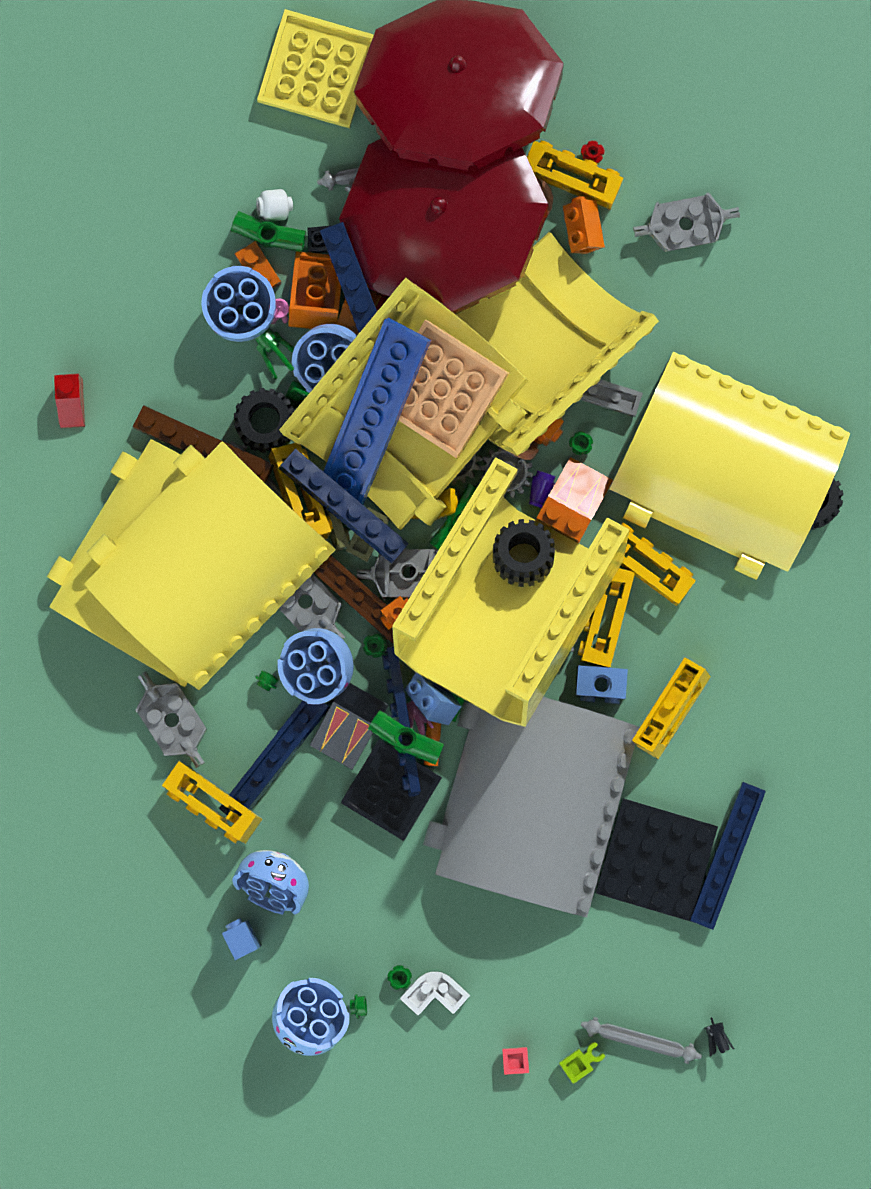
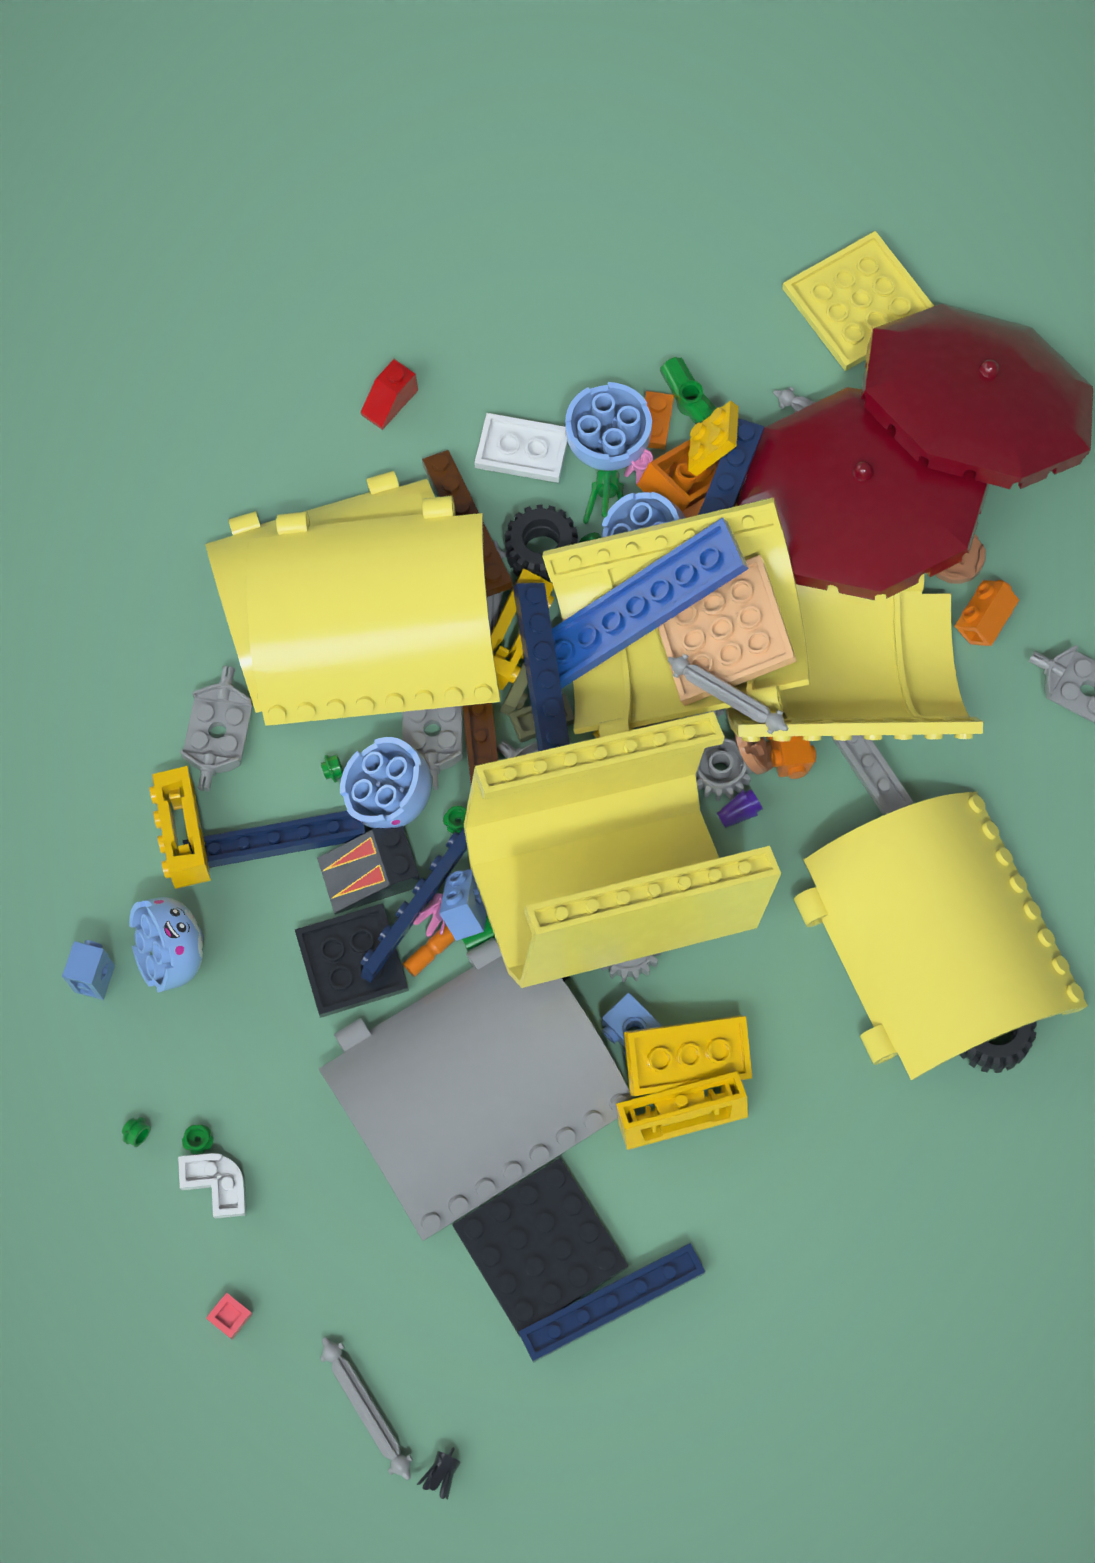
camera: 45 degrees right, 15 degrees down
(190, 362) = (522, 447): none -> white plate
(274, 205) = (718, 378): white head -> none
(315, 256) = (713, 438): none -> yellow plate
(316, 1008) = (79, 1094): light blue cylinder -> none
(390, 730) = (398, 896): green piece -> none
(485, 432) = (728, 694): none -> light grey wheel
(523, 534) = (672, 823): black tyre -> none
(538, 159) = (1041, 594): yellow brick -> none
(574, 500) = (773, 828): slope -> none
(578, 1064) = (284, 1374): lime plate -> none
(585, 438) = (814, 793): green plate -> none
(592, 145) = (1049, 566): red plate -> none
(597, 656) = (738, 948): yellow brick -> none
(646, 672) = (686, 1053): none -> yellow plate
(662, 561) = (792, 1007): yellow brick -> none

